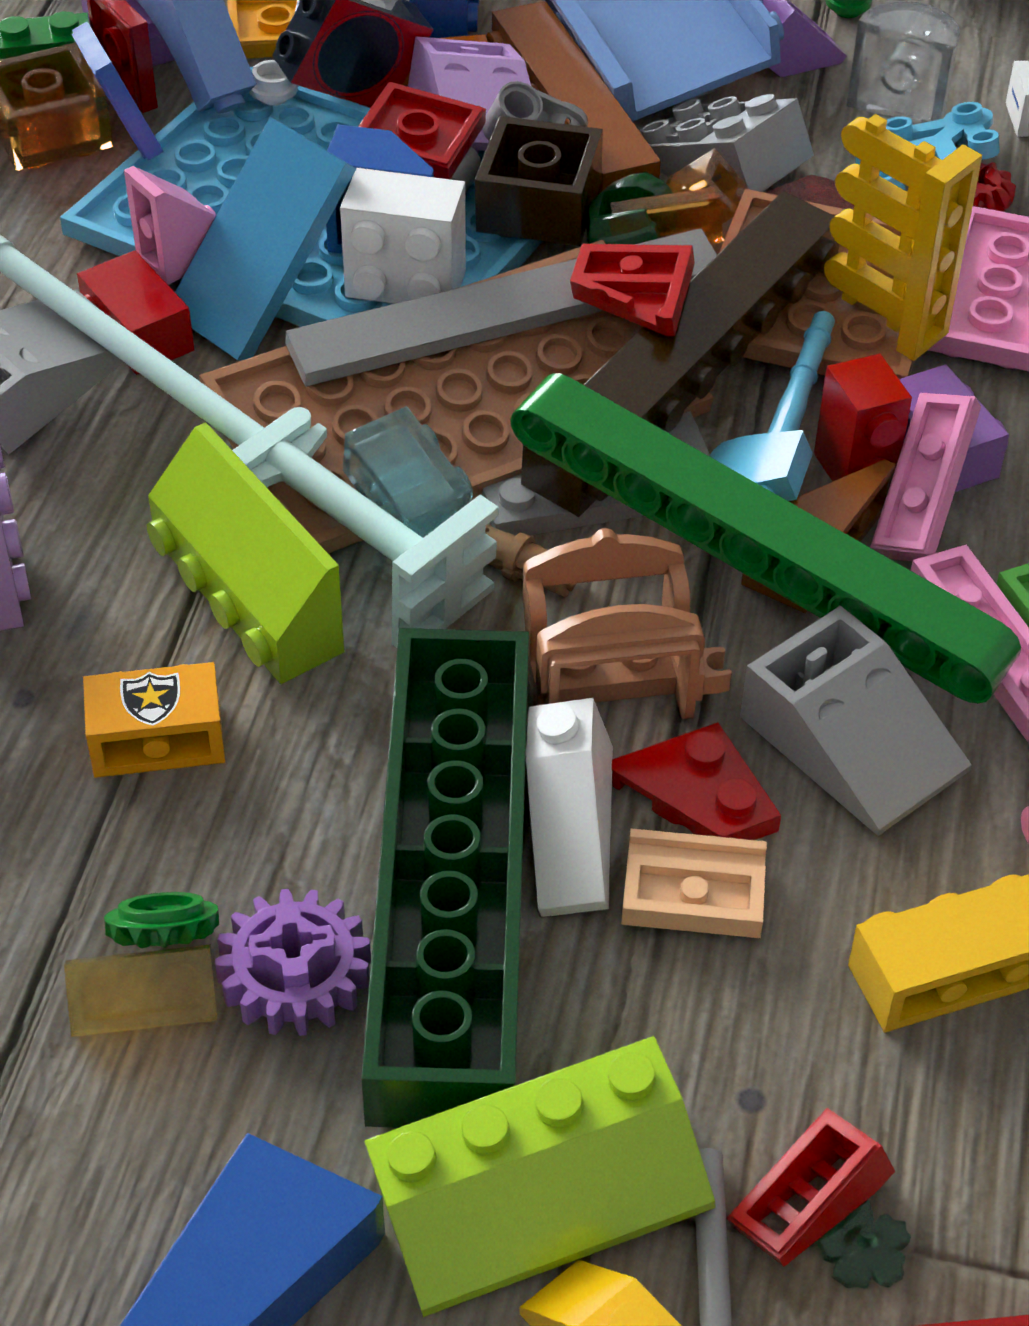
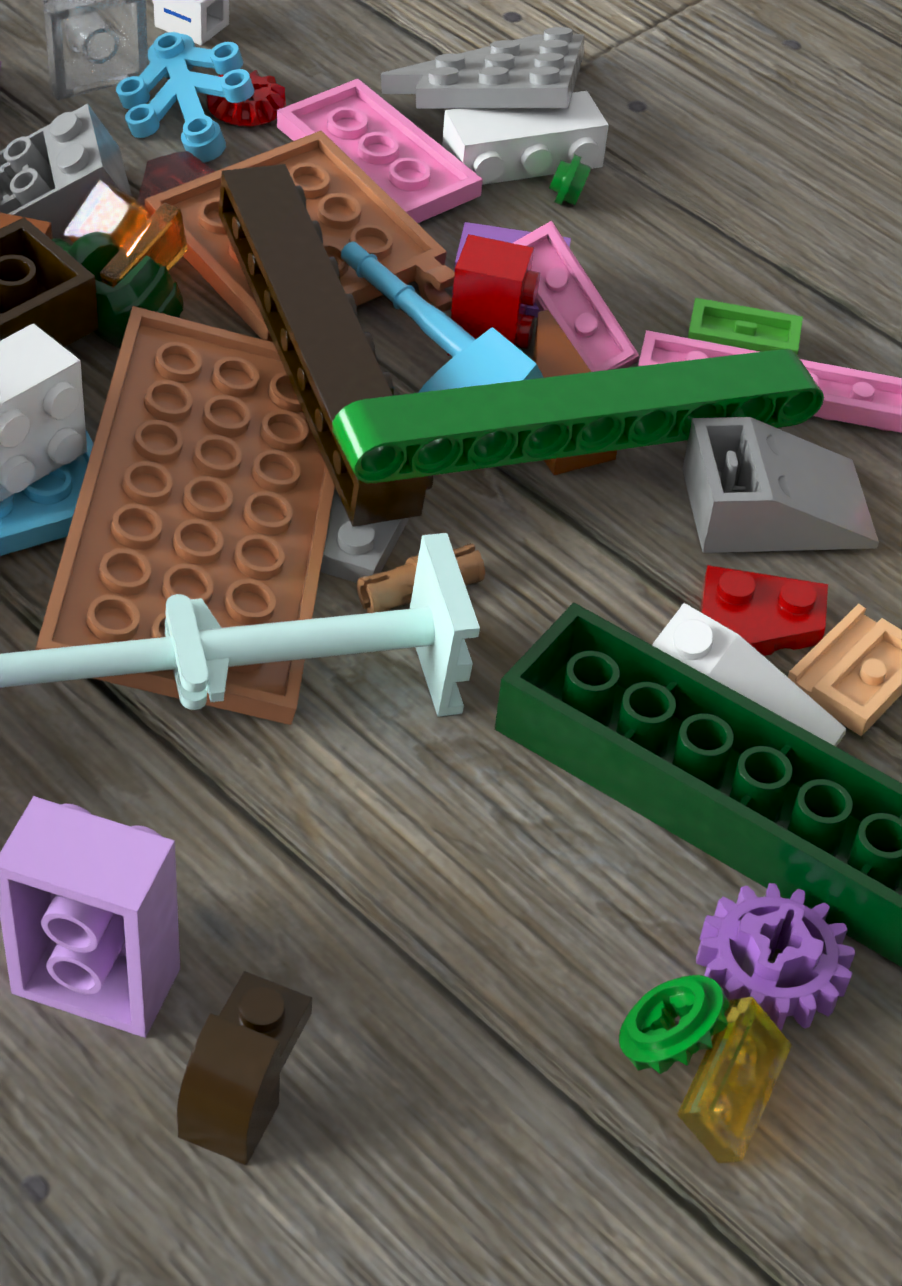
camera: 60 degrees left, 0 degrees up
(153, 719) = (416, 916): light orange brick -> none
(247, 557) = (287, 739): lime slope -> none
(405, 471) = (302, 578): clear light blue brick -> none
(450, 318) = (153, 418): light grey tile -> none
(618, 648) = (611, 570): nougat animal -> none
(635, 282) = (246, 309): red wing -> none
(931, 223) = (423, 114): yellow fence -> none

